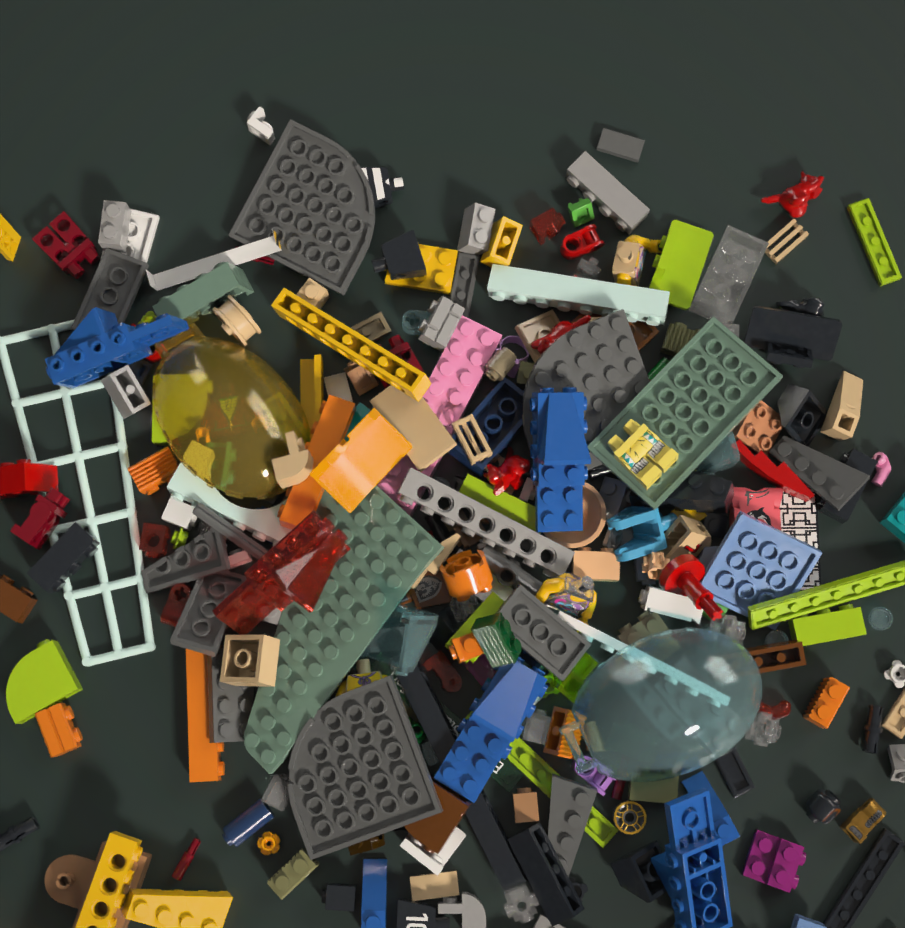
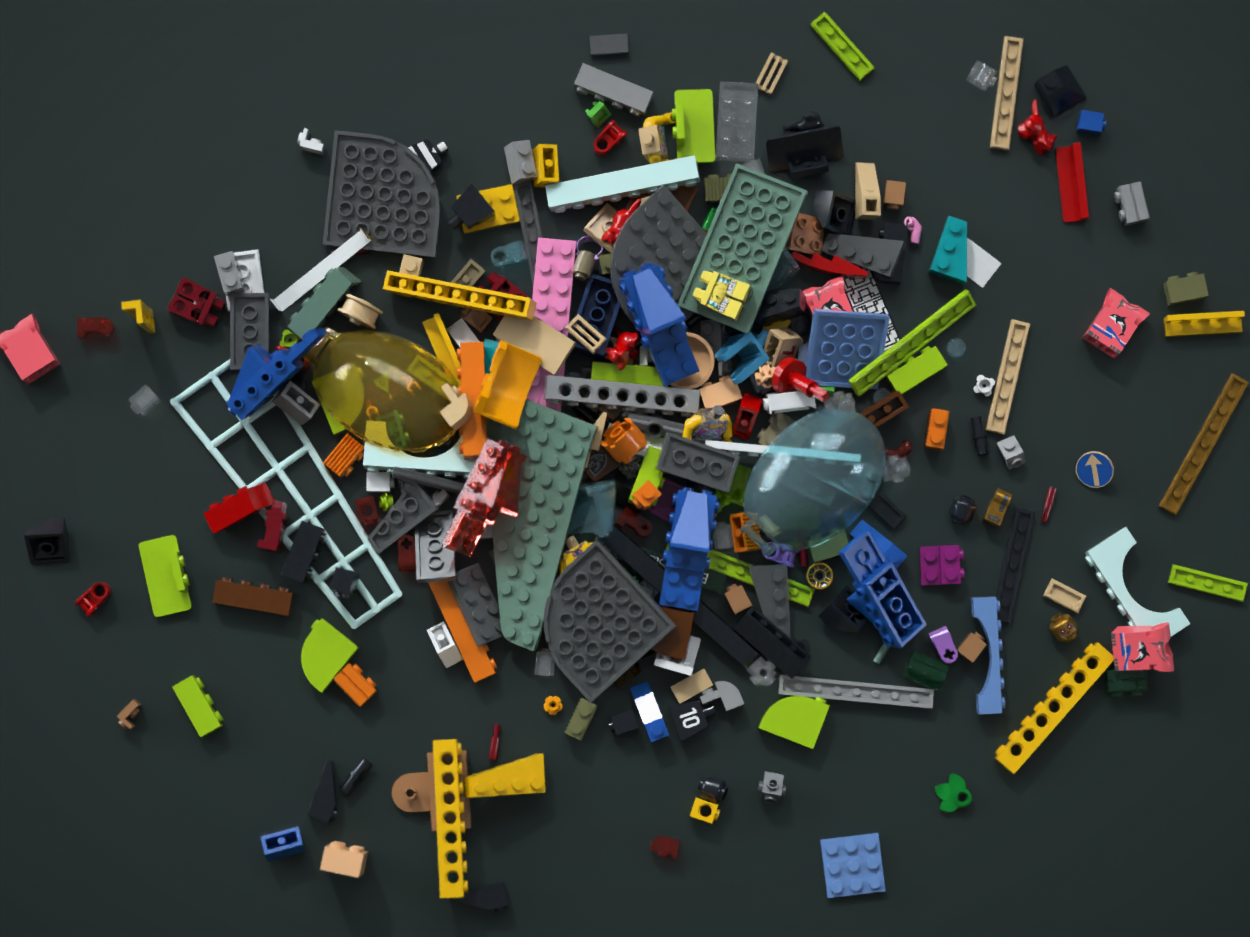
camera: 25 degrees left, 5 degrees up
(90, 610) = (344, 582): none -> black brick
(175, 725) = (444, 644): none -> white slope
(247, 823) = (530, 696): dark blue brick -> none
(250, 660) = (483, 571): tan brick -> none
(441, 323) = (524, 250): light grey brick -> none
(496, 640) = (666, 481): dark green brick -> none
(546, 225) = (575, 135): clear red brick -> none
(588, 269) = (622, 160): clear tile -> none
(616, 602) = (746, 416): none -> red slope
(796, 197) = (766, 35): red animal -> none
(873, 421) = (894, 194): none -> medium nougat brick

